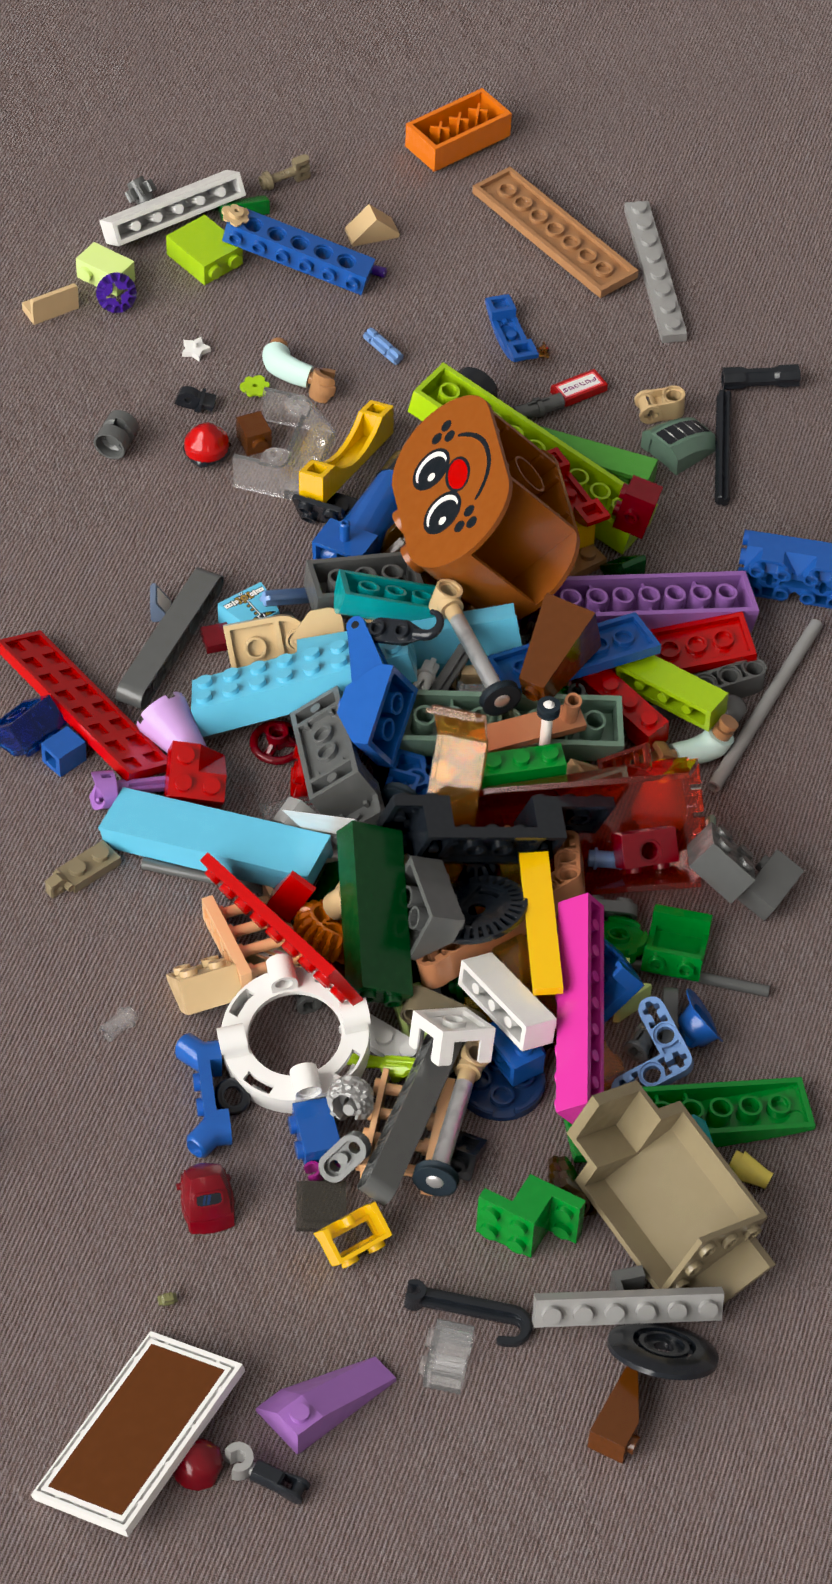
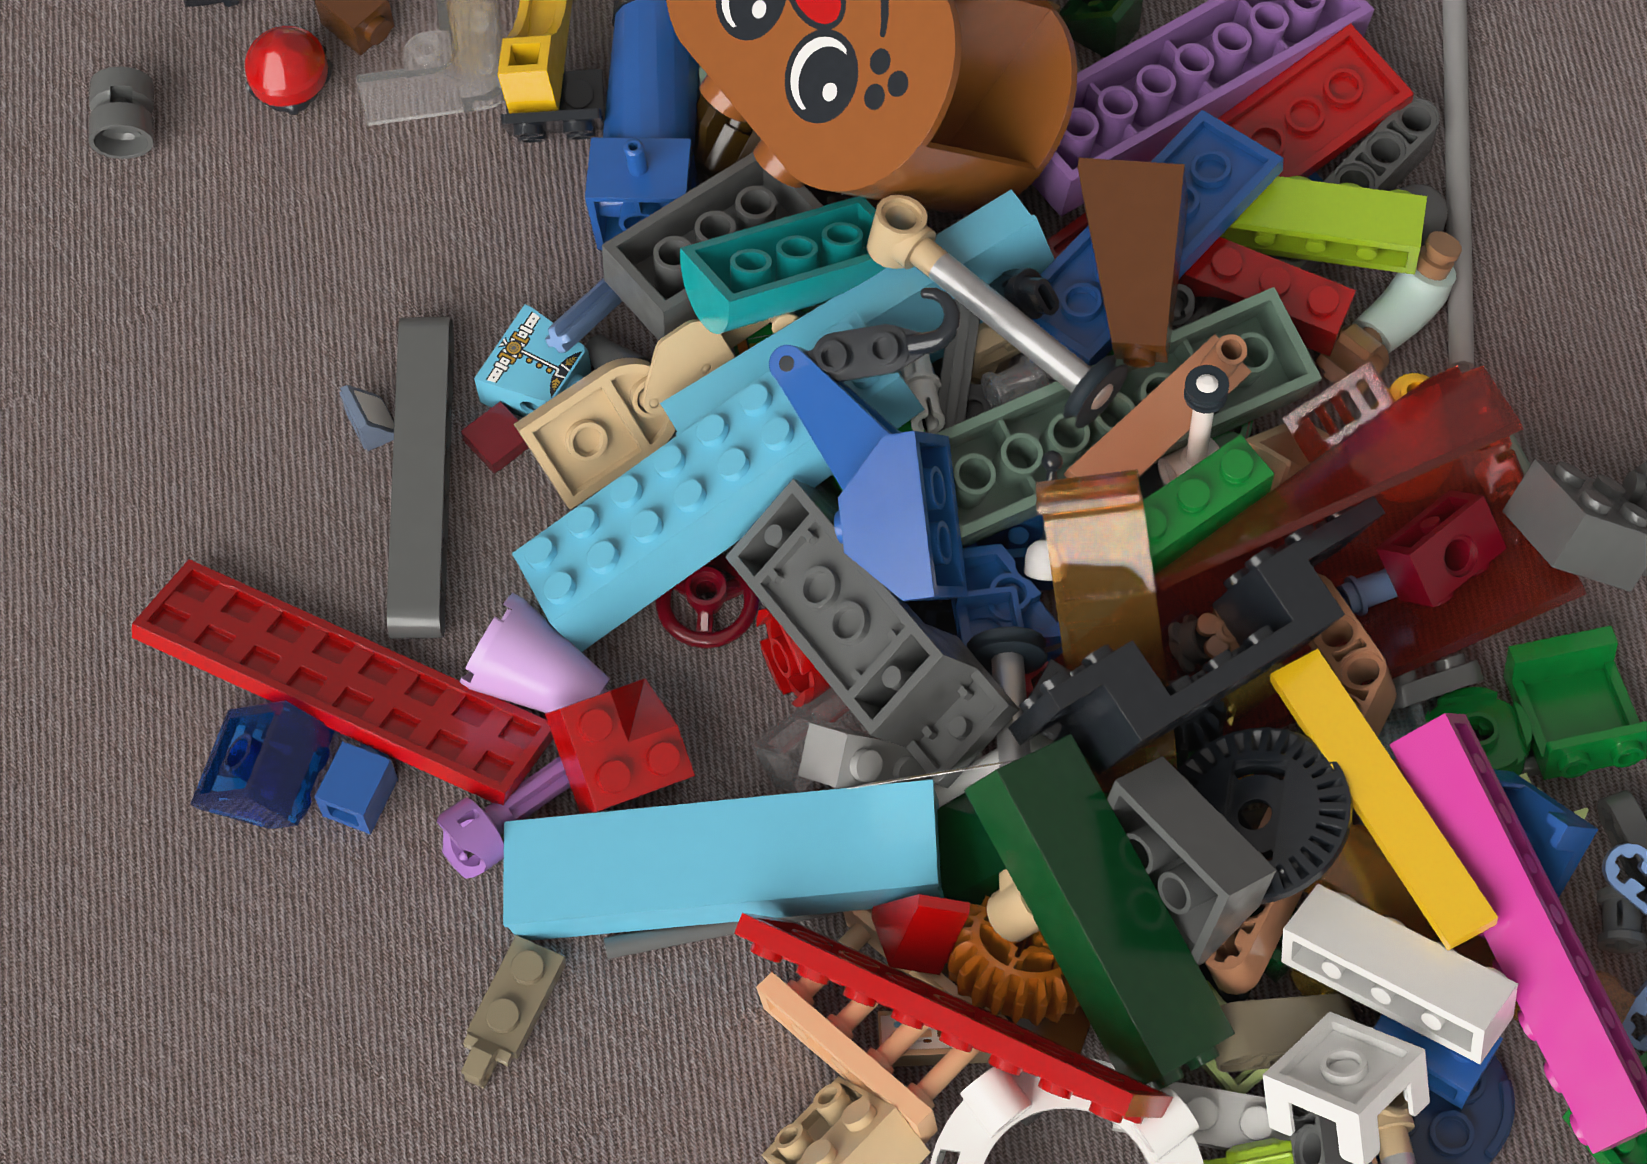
camera: 20 degrees left, 15 degrees up
(496, 650) = (1027, 292): none -> black piece

